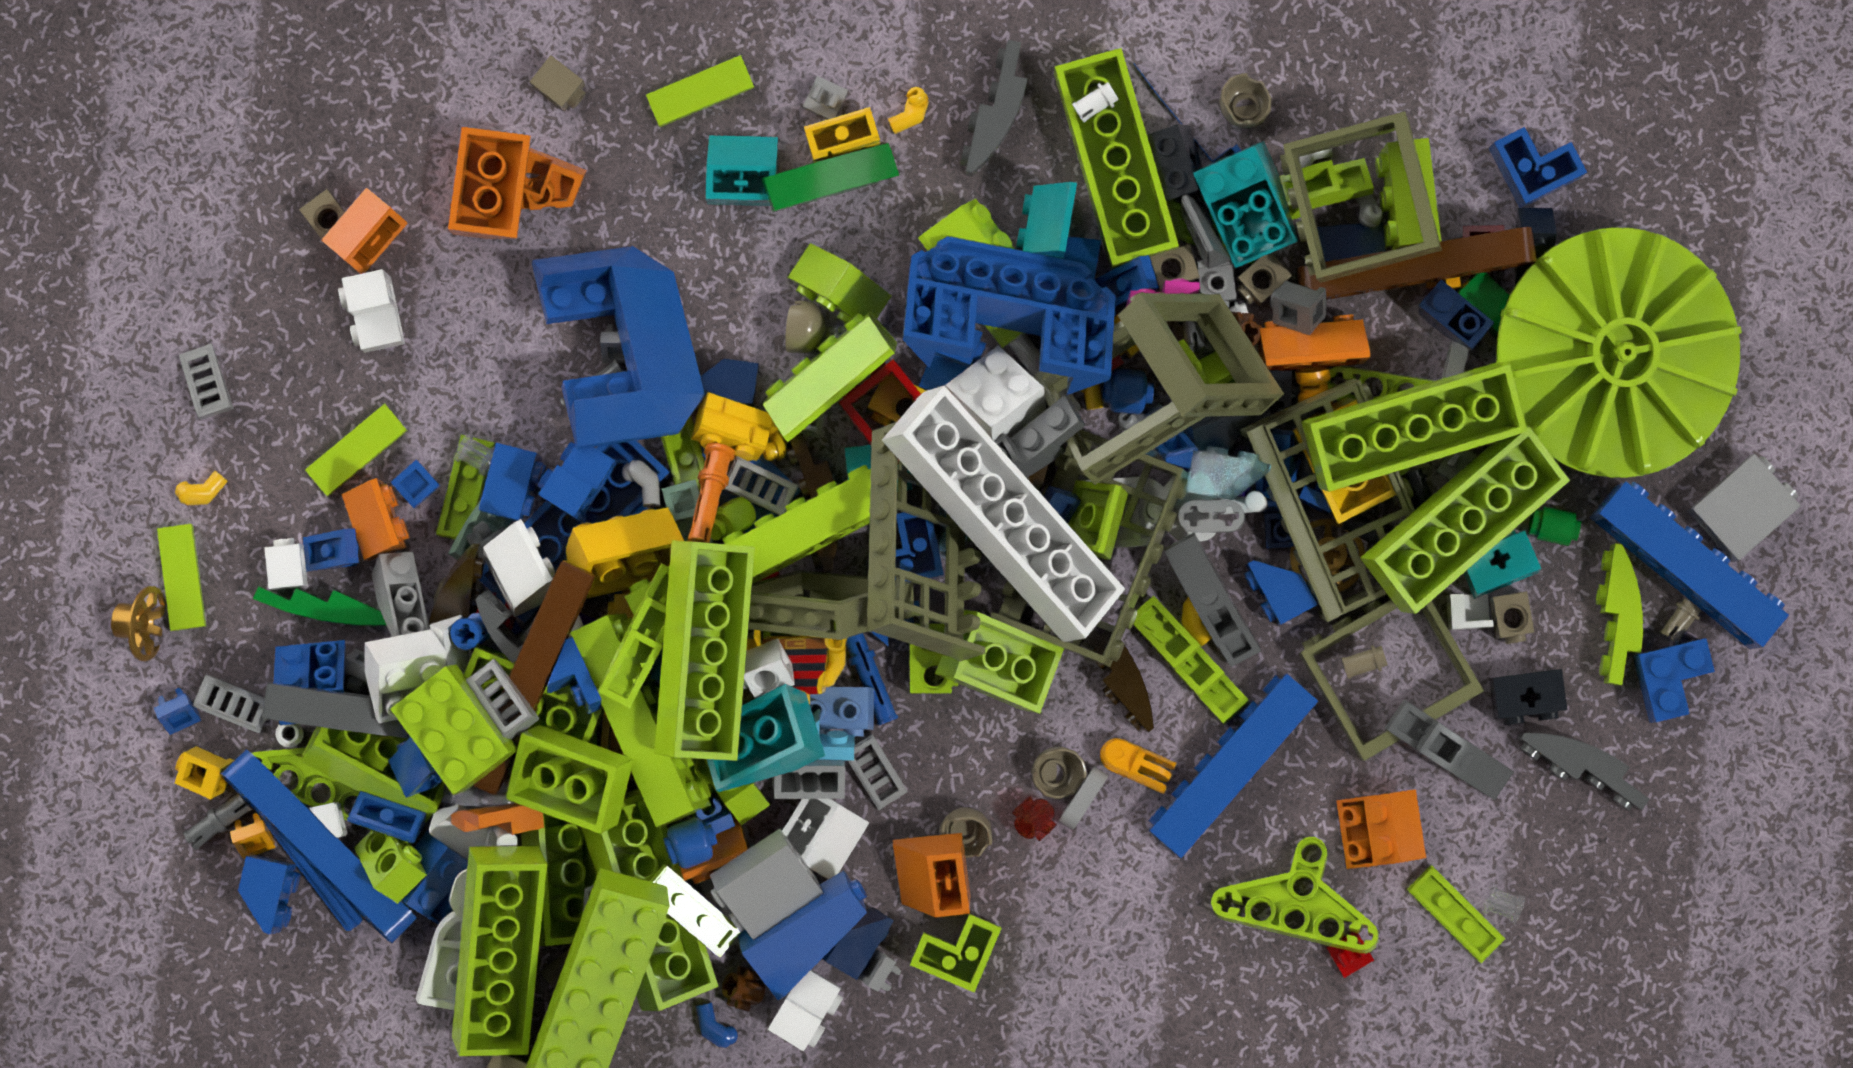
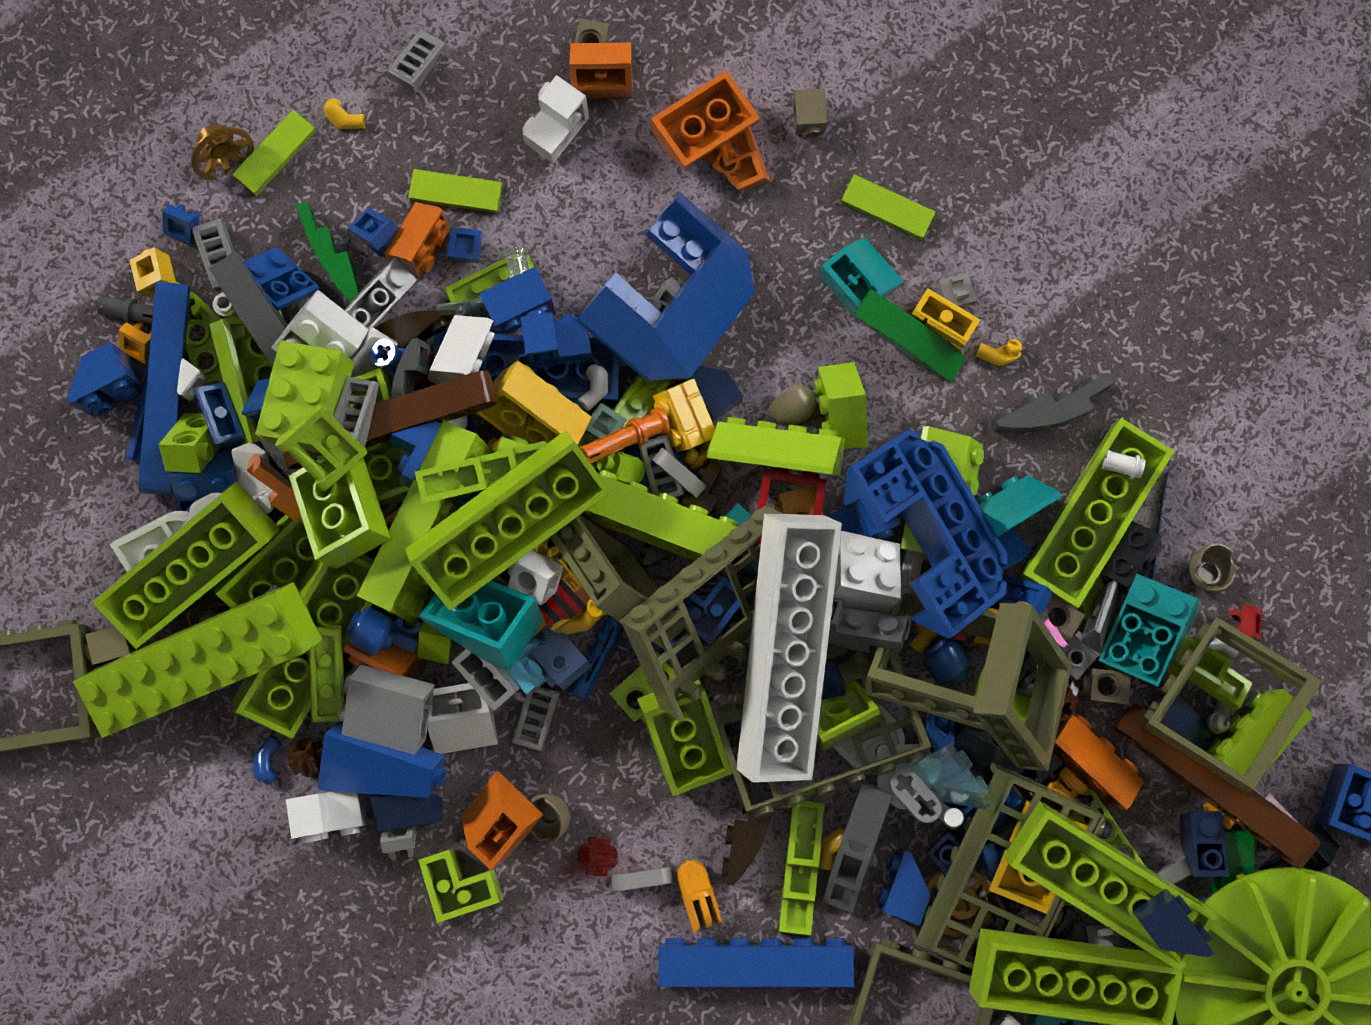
camera: 50 degrees right, 5 degrees down
(285, 565) = (338, 209): white brick -> none
(516, 736) = (330, 439): none -> lime plate
(778, 475) = (679, 472): none -> light grey beam
(1045, 771) = (635, 836): dark tan hair -> none
(1298, 307) = (1112, 728): dark grey brick -> none
(1316, 112) = (1250, 621): none -> red tile
(1364, 661) = (910, 996): dark tan pin -> none
(1484, 409) = (1171, 928): none -> dark blue slope

